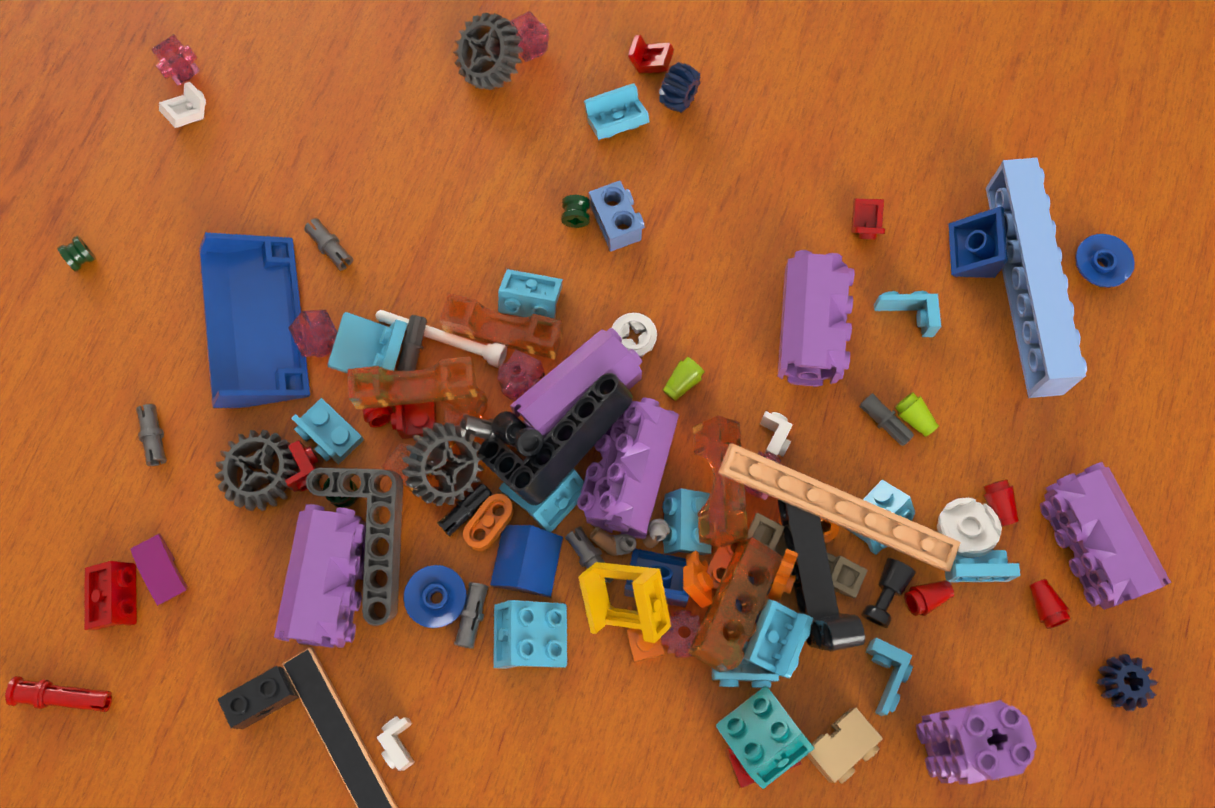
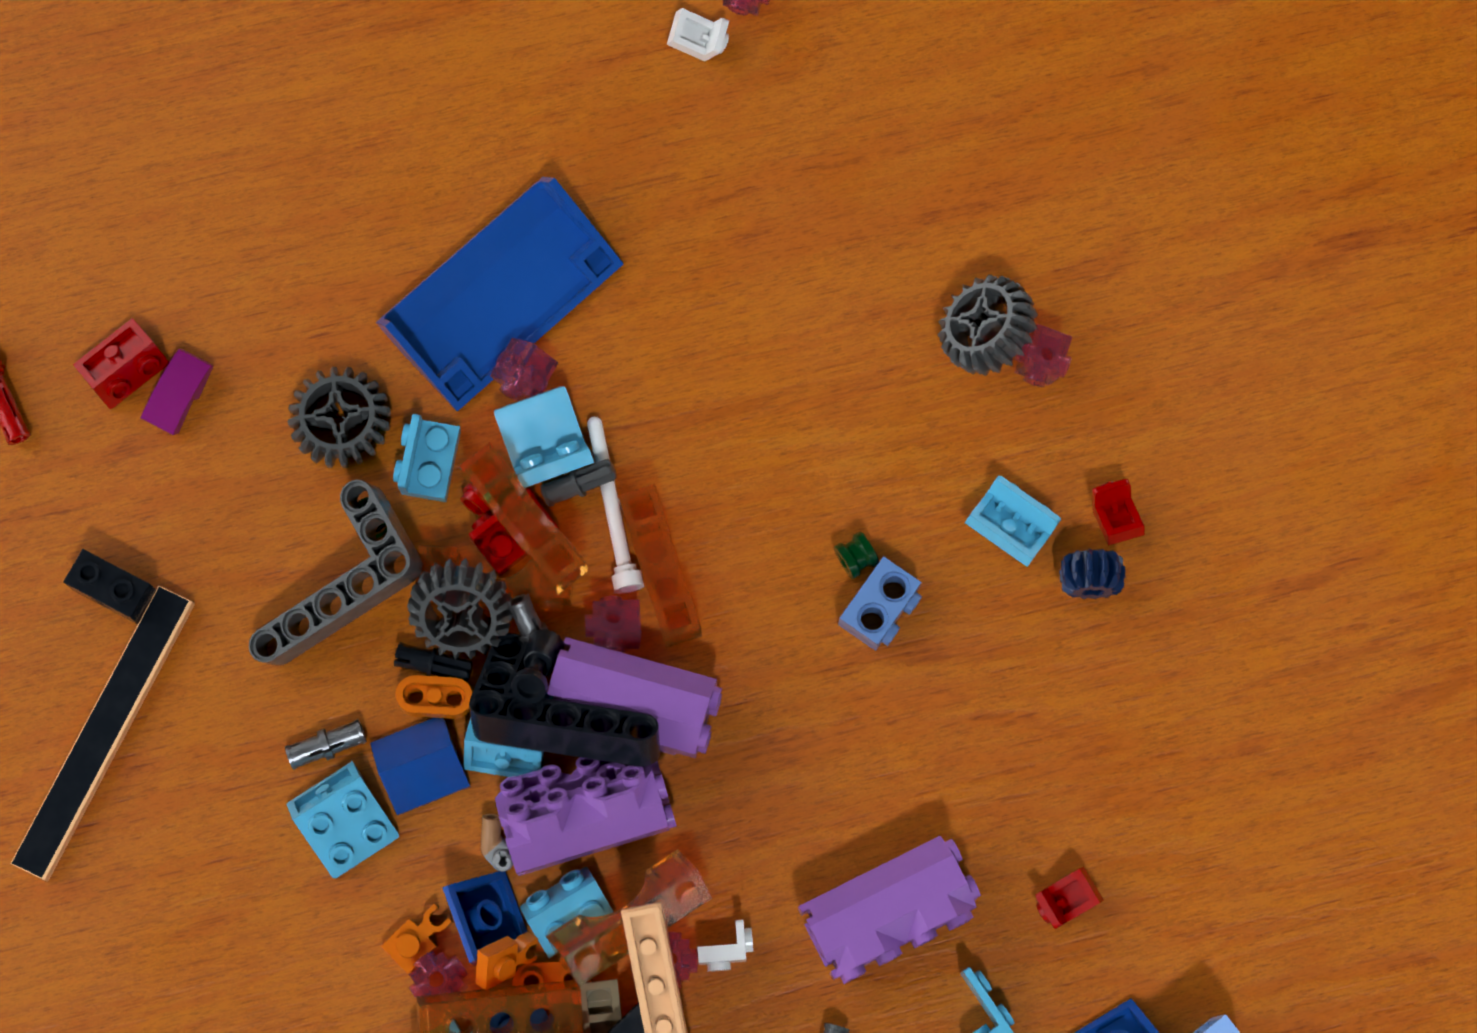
camera: 55 degrees right, 5 degrees up
(76, 253) = (454, 52): dark green wheel -> none
(151, 435) = (309, 279): flat silver pin -> none
(306, 462) = (379, 460): red bracket -> none
(322, 578) = (265, 566): medium lavender brick -> none
(328, 244) = (640, 309): flat silver pin -> none
(395, 752) = (141, 759): white bracket -> none
(424, 585) = (307, 680): blue dish -> none
(528, 294) = (721, 569): medium azure bracket -> none
(585, 549) = (464, 829): flat silver pin -> none
(640, 324) = (746, 698): white gear -> none
(649, 597) = (443, 918): yellow window -> none
(657, 531) = (531, 884): light grey arm -> none
(683, 378) = (730, 804): lime cone -> none

